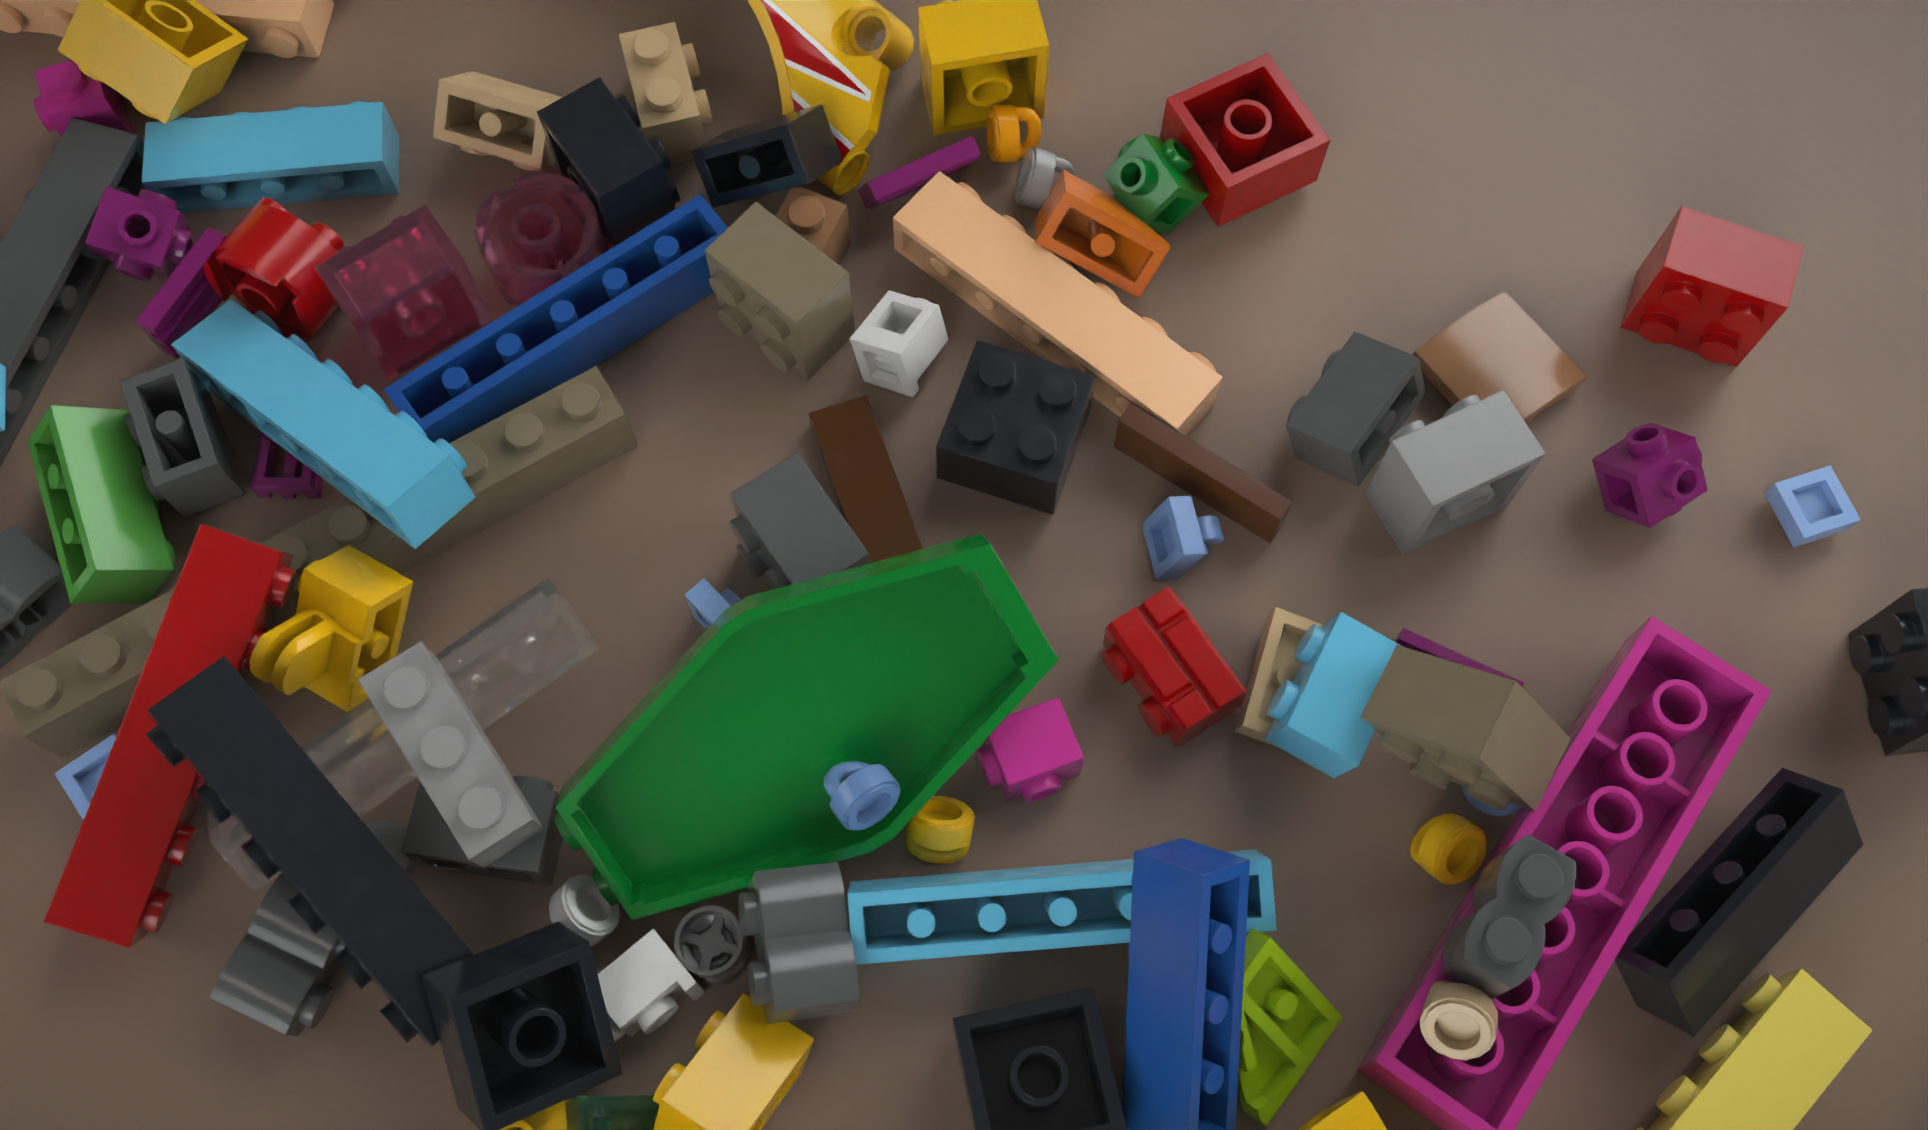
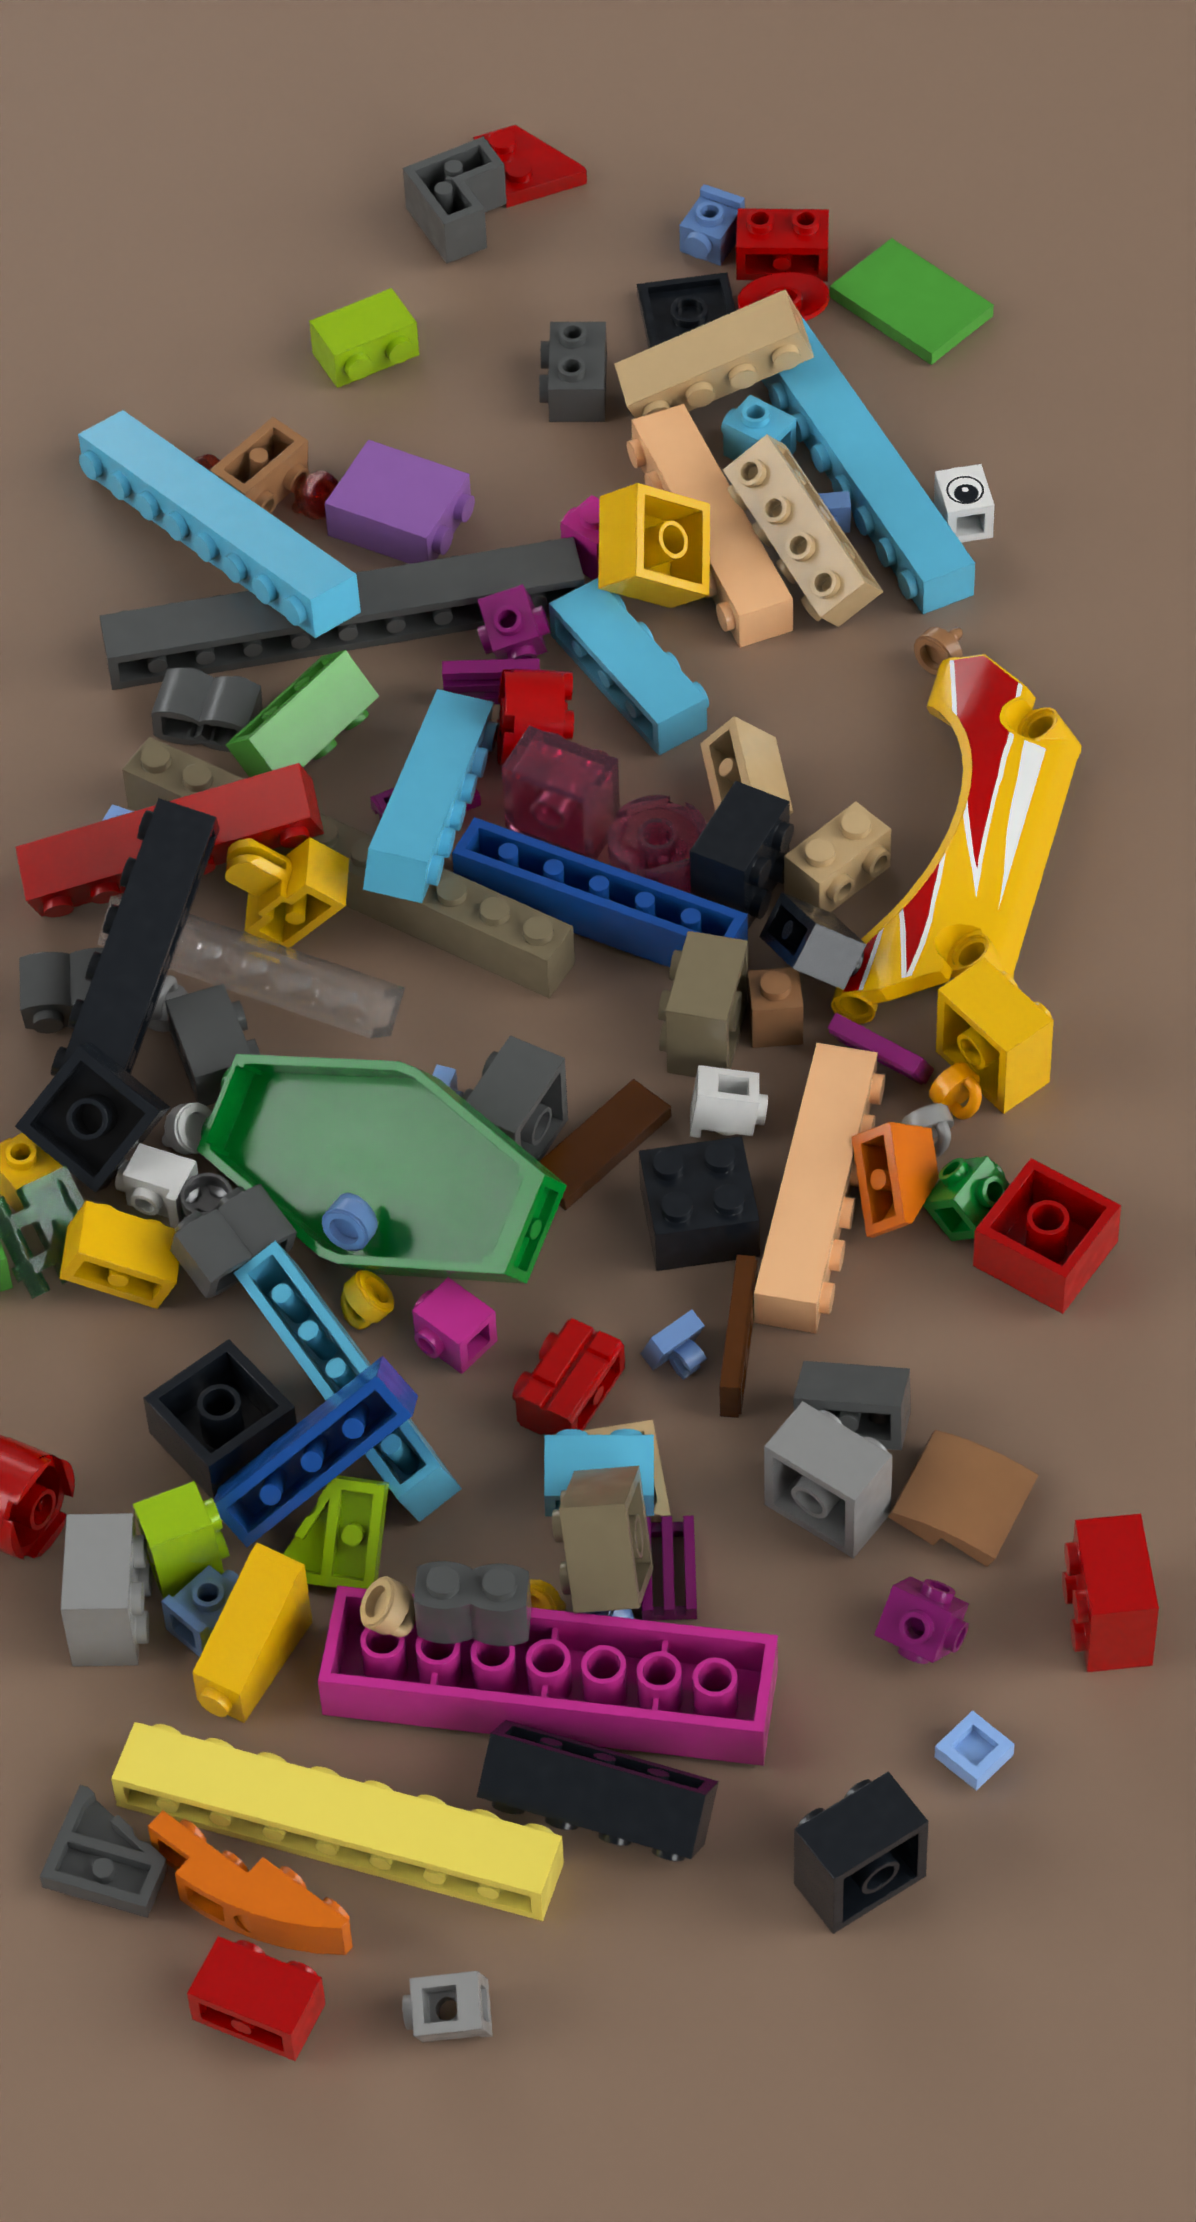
camera: 65 degrees right, 15 degrees down
(180, 439) = (375, 736): dark grey brick -> none
(451, 755) = (235, 981): light grey brick -> none

